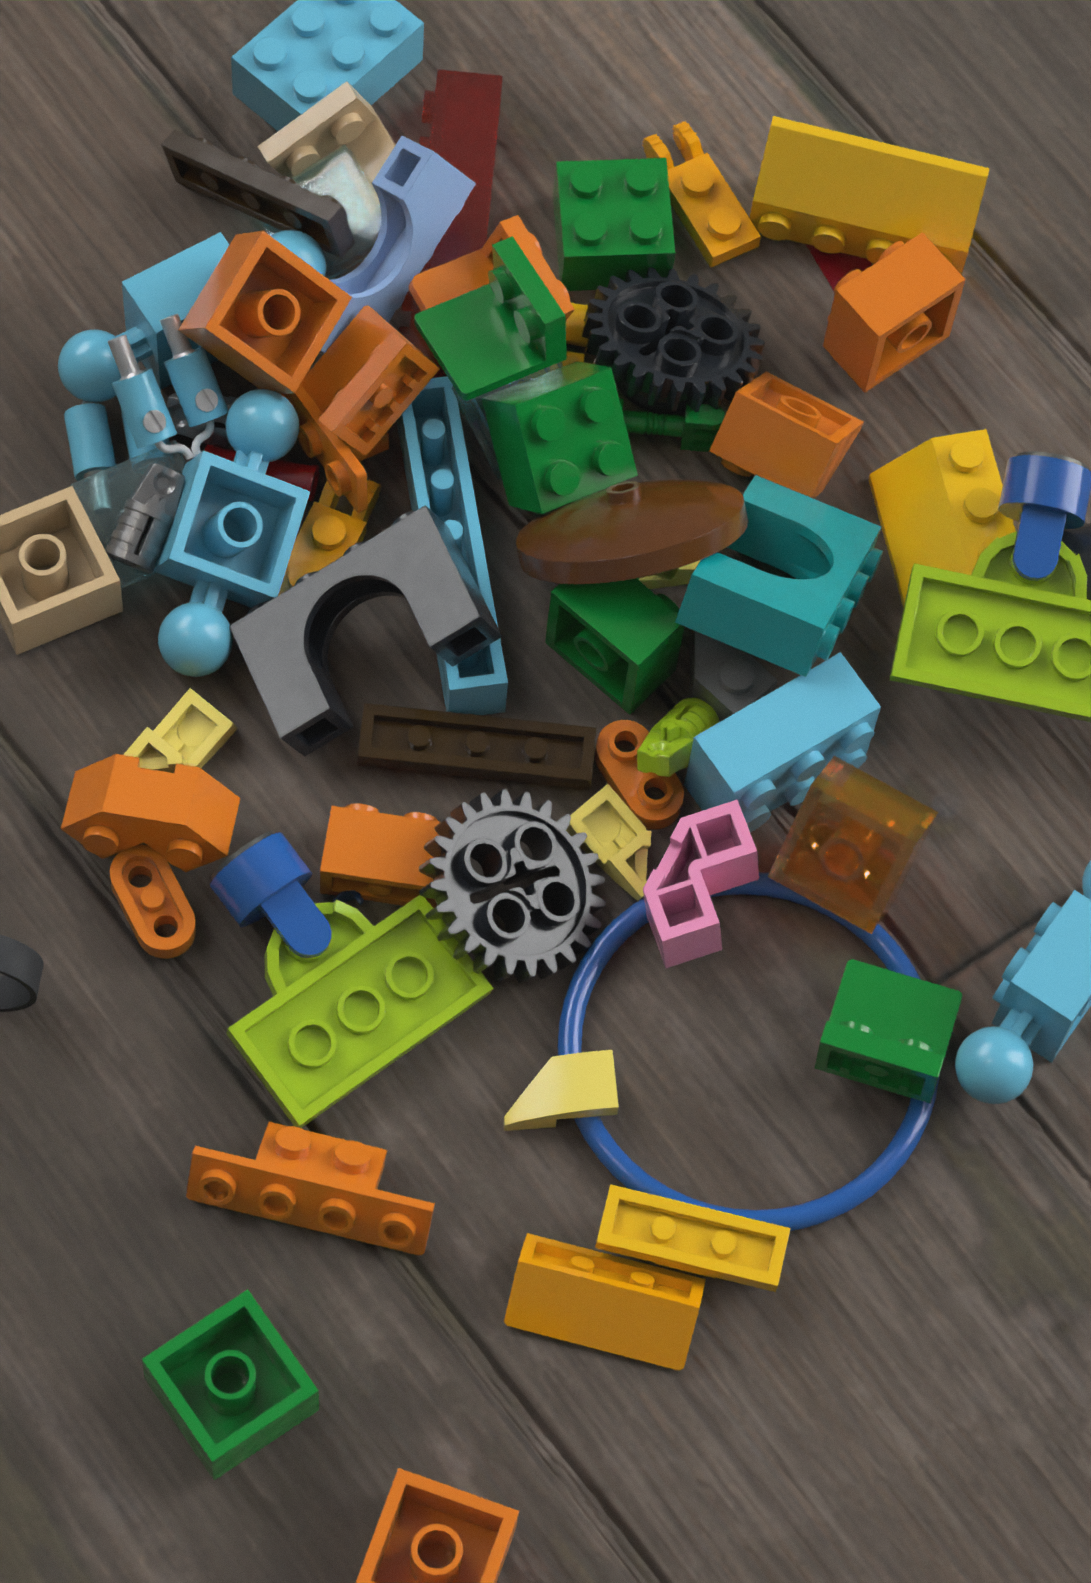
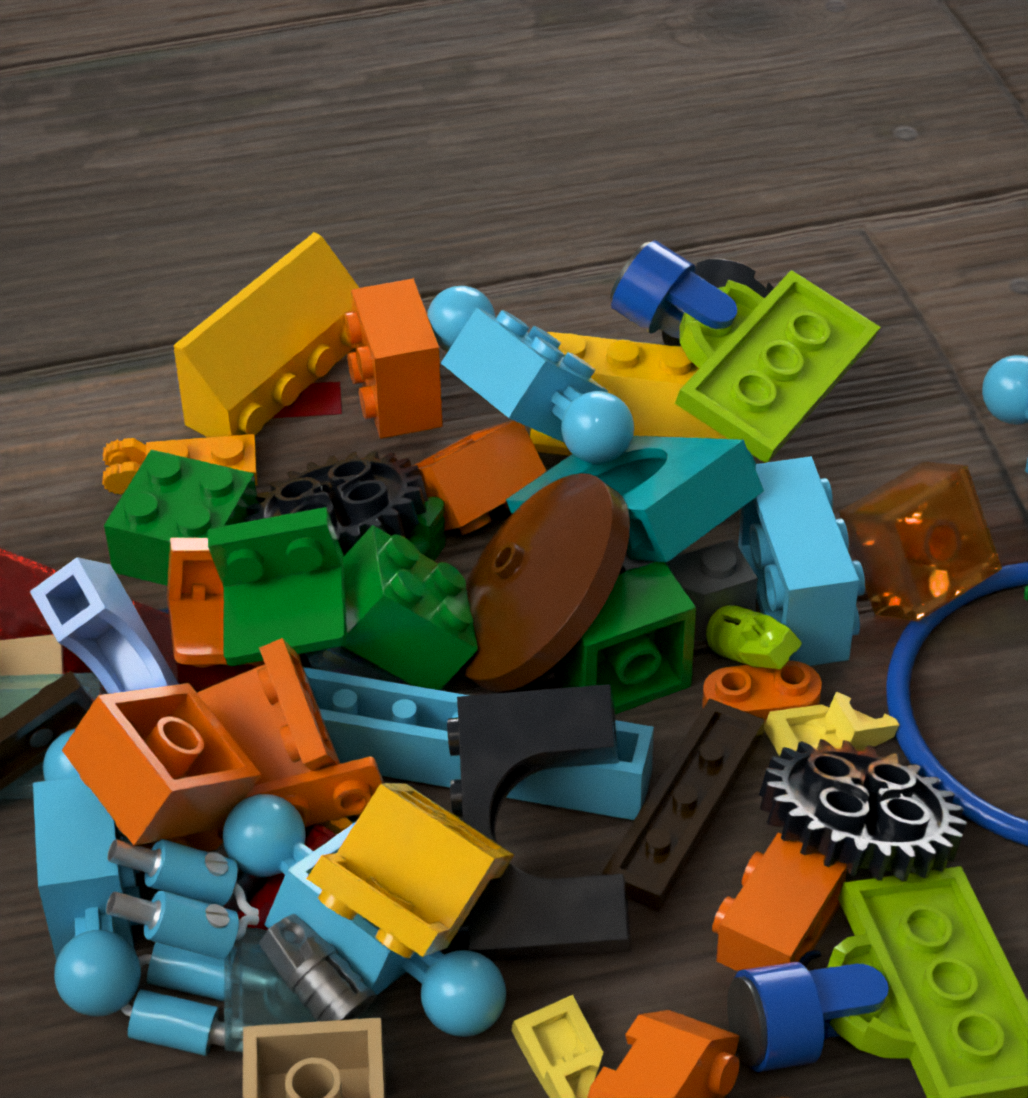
camera: 60 degrees left, 20 degrees down
(228, 536) = (409, 871): none -> yellow bracket
(705, 856) = (926, 677): bright pink brick -> none
(880, 426) = (529, 376): none -> medium azure brick

